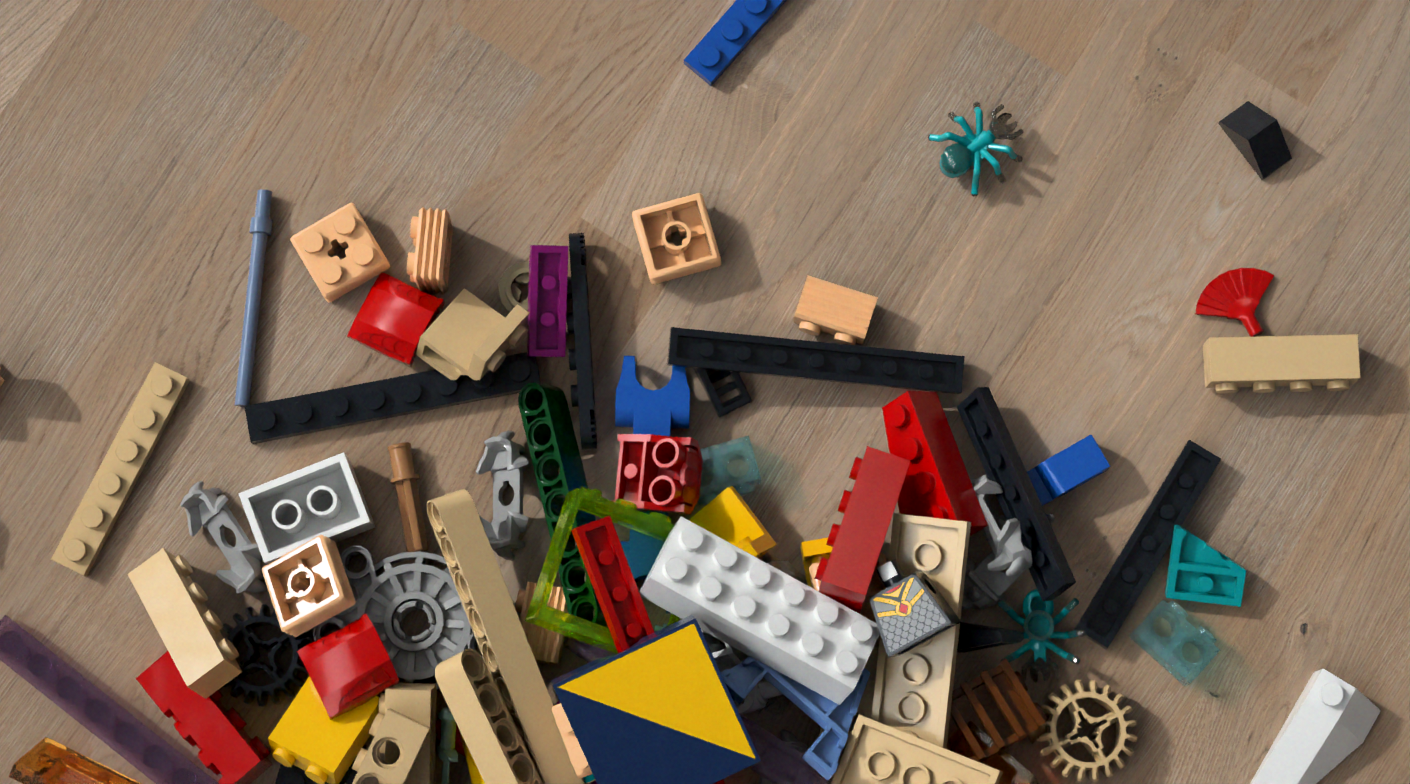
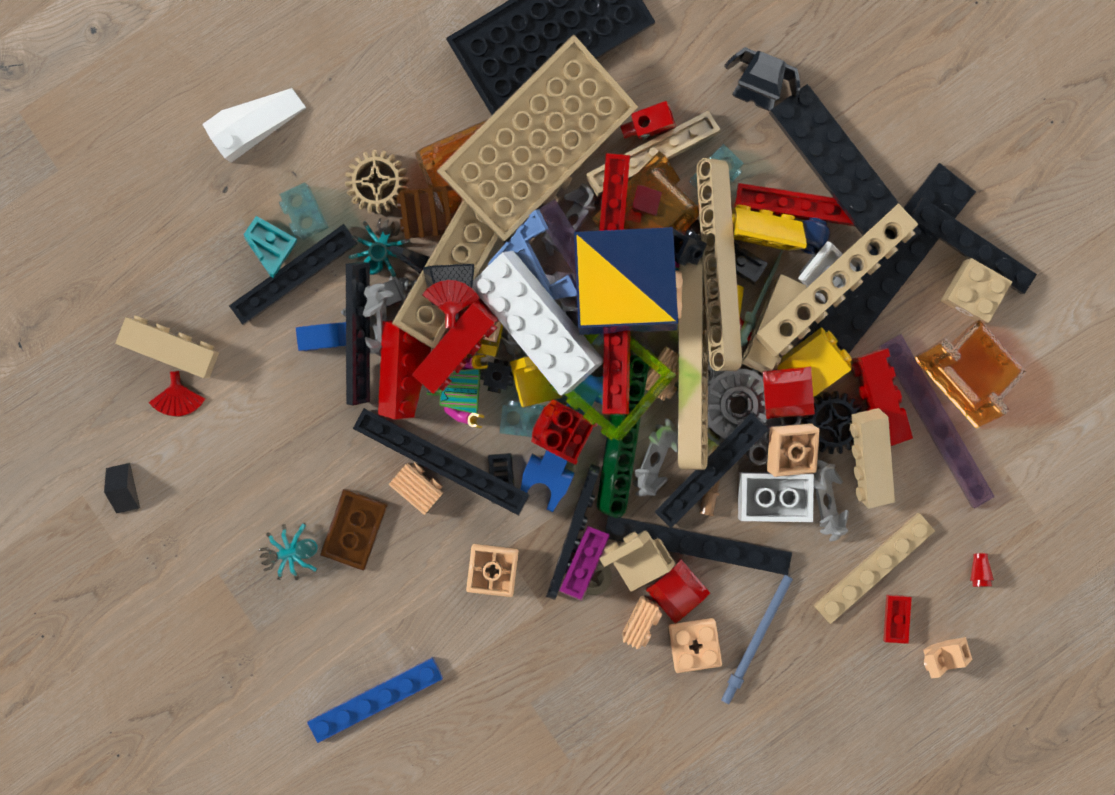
camera: 165 degrees left, 10 degrees up
(59, 409) = (897, 619): none -> red plate
(410, 518) = (718, 464): none -> black plate
(787, 532) = (506, 380): none -> black brick
(824, 469) = (461, 396): none -> torso
(900, 216) = (353, 529): none -> reddish brown tile
(900, 590) = (451, 298): none -> red hand

